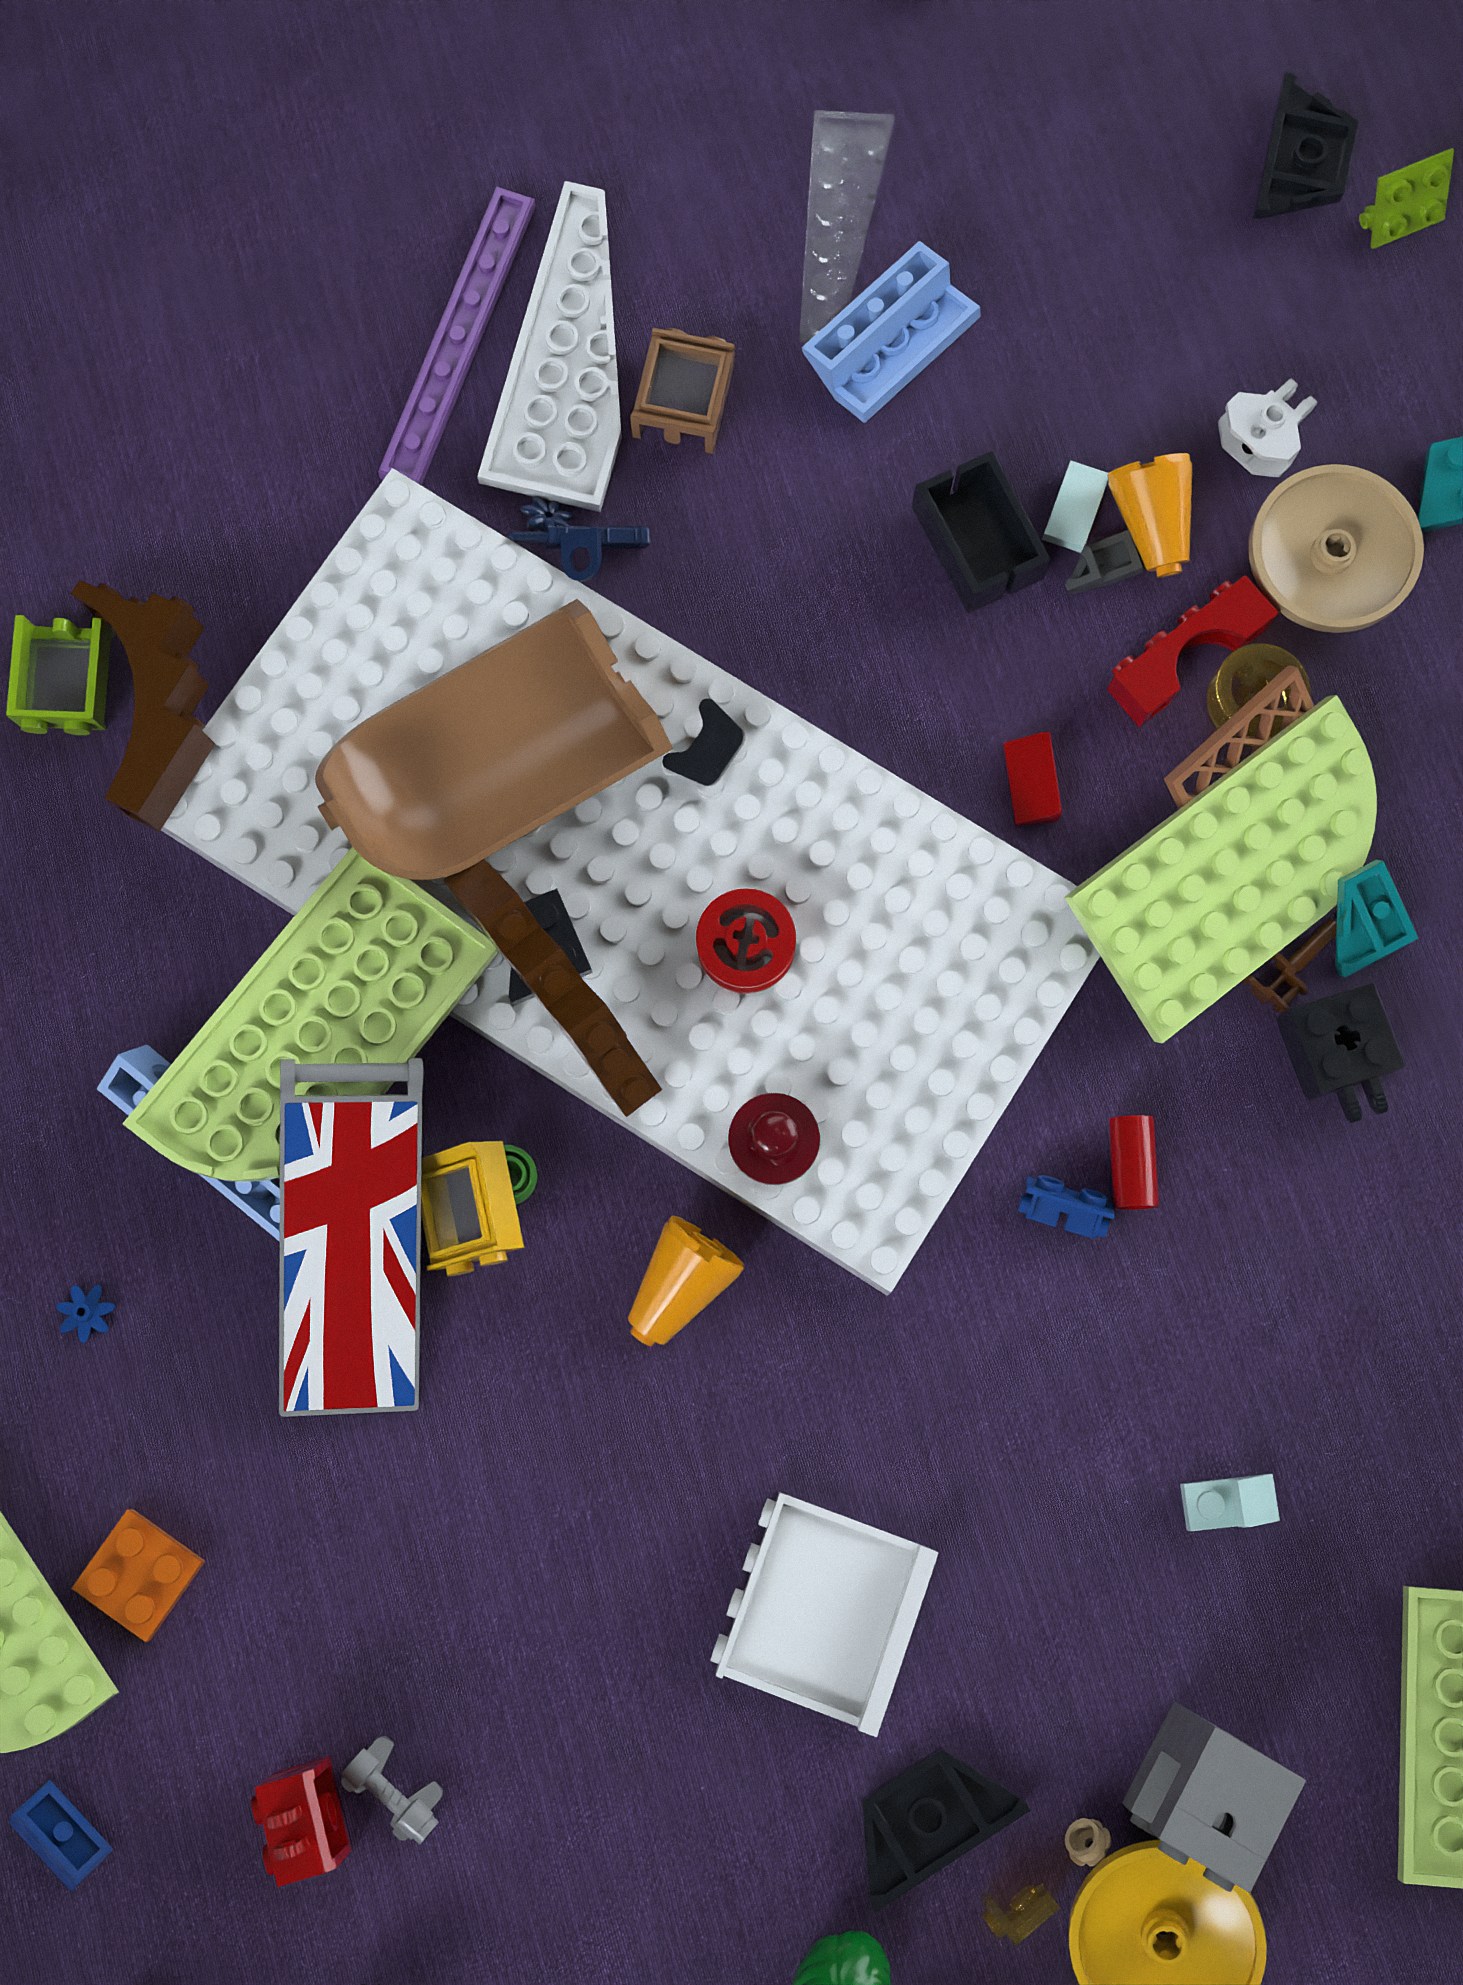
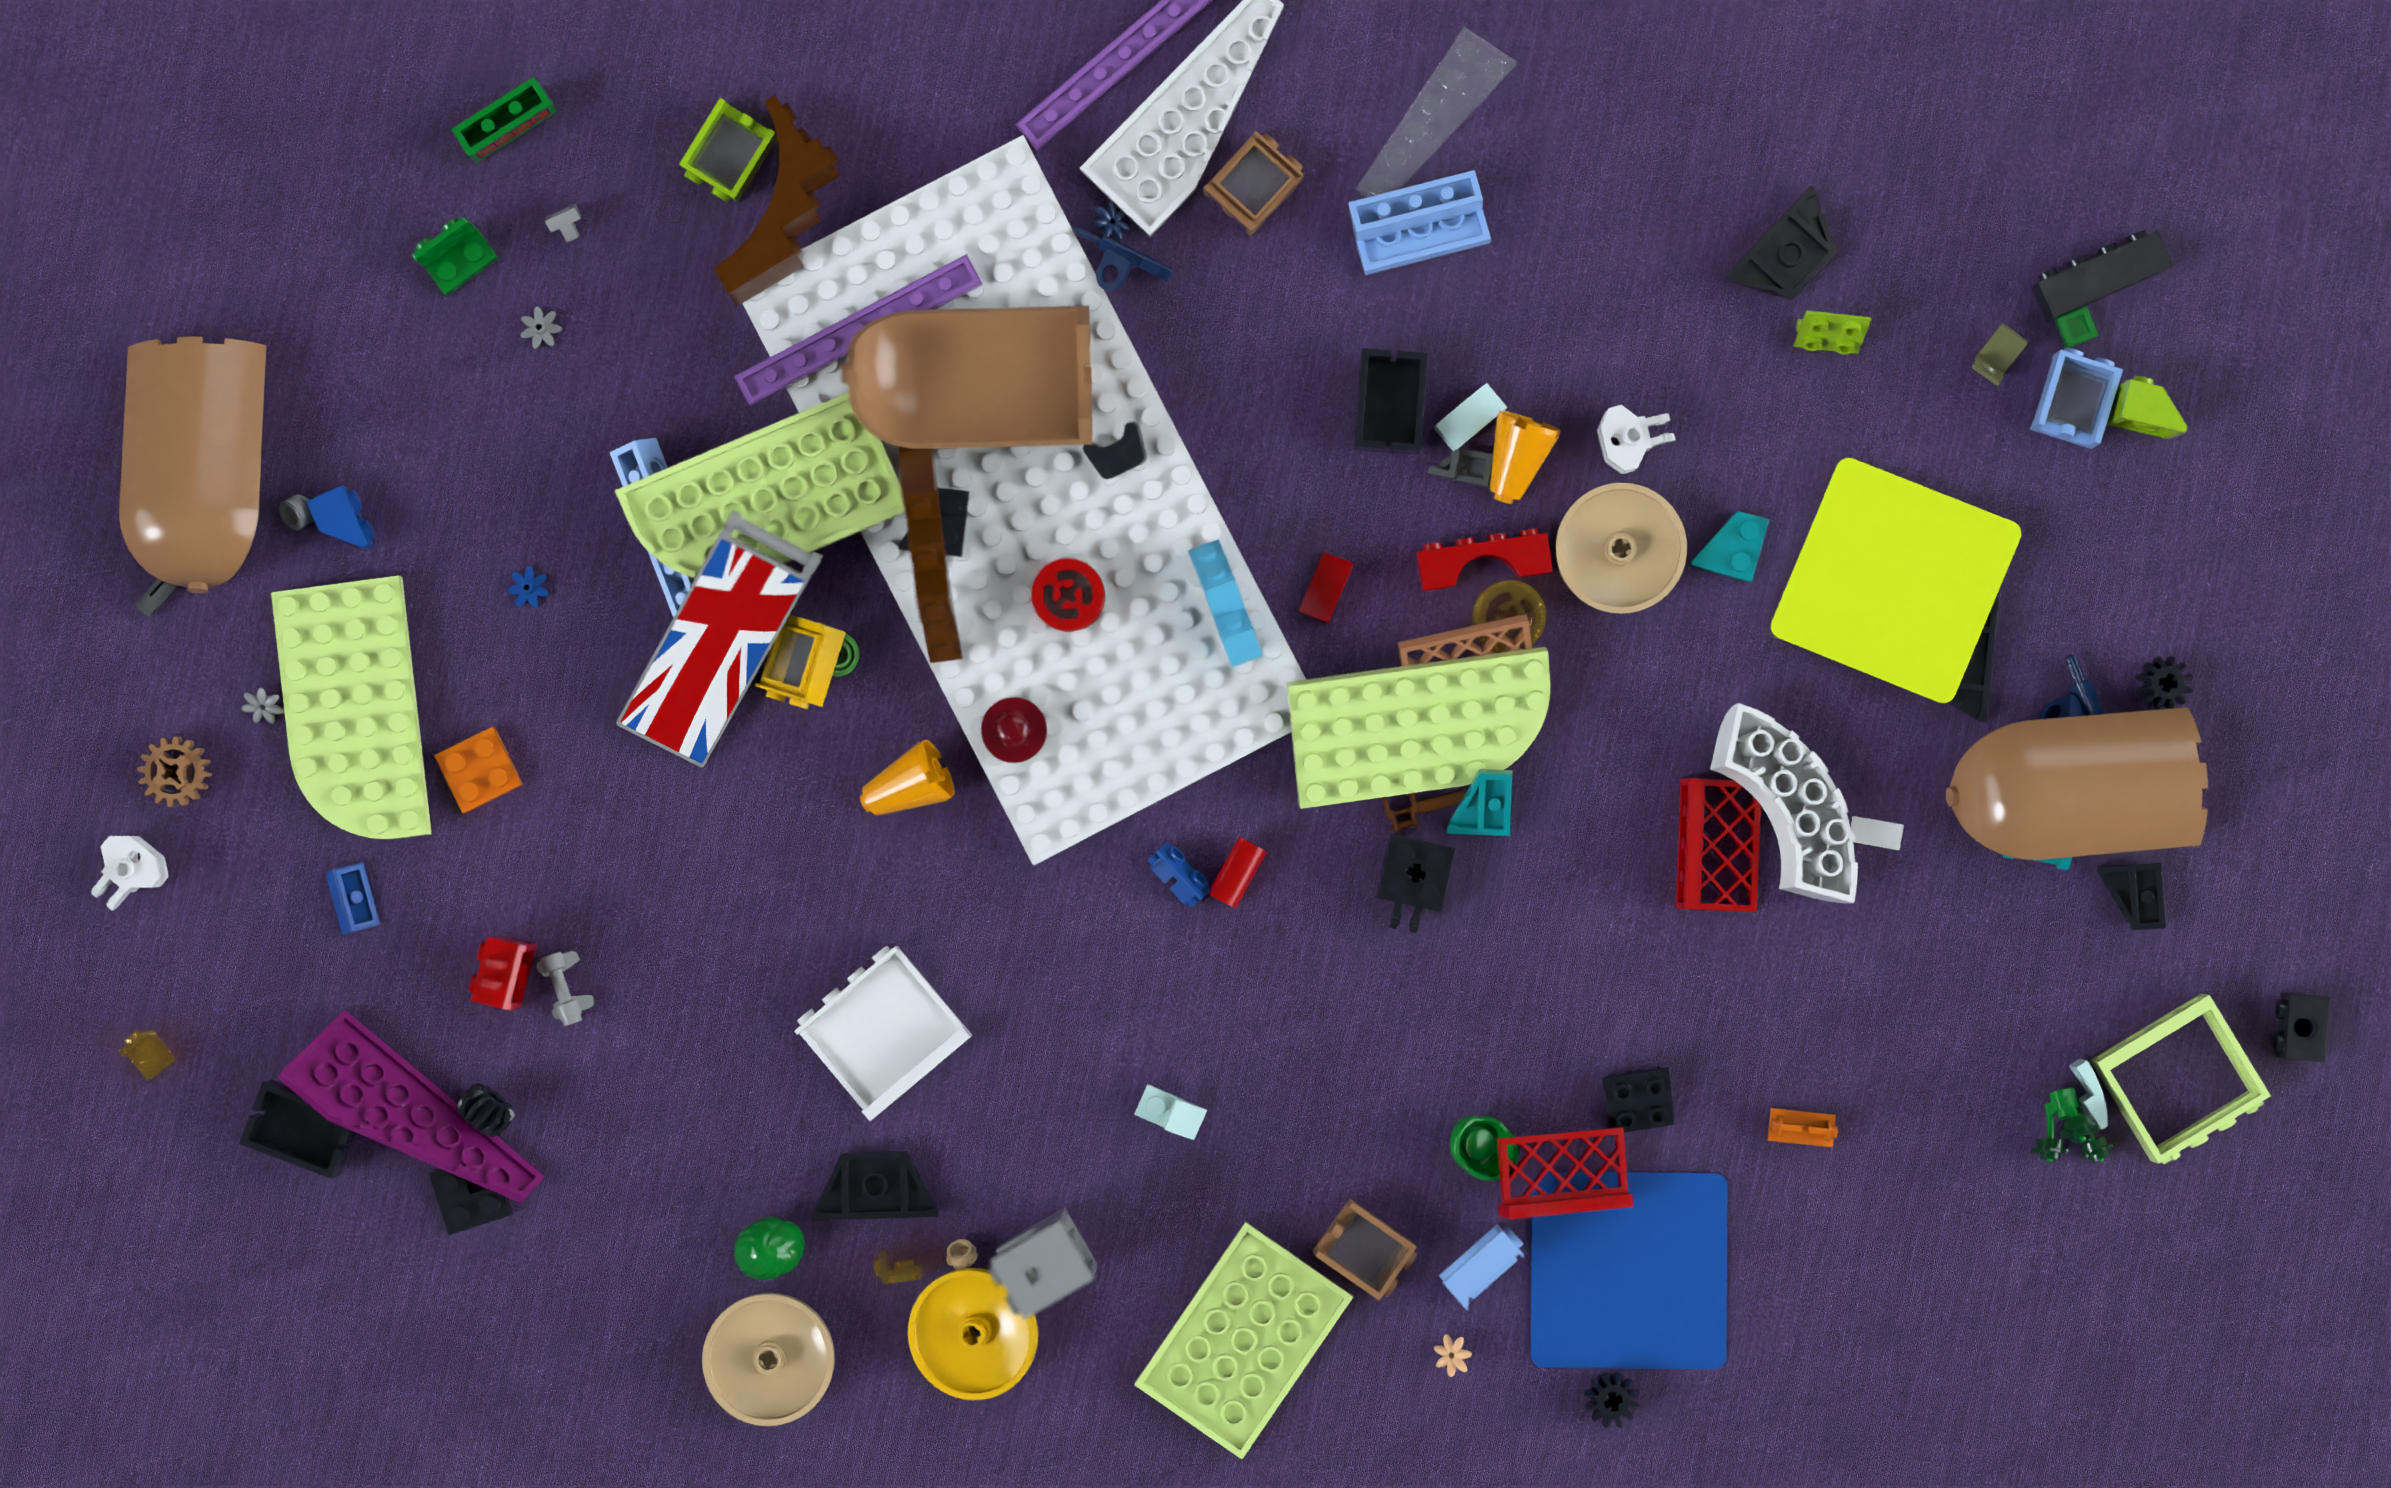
camera: 30 degrees right, 10 degrees up
(296, 811) = (833, 342): none -> medium lavender tile
(929, 834) = (1225, 603): none -> medium azure arch

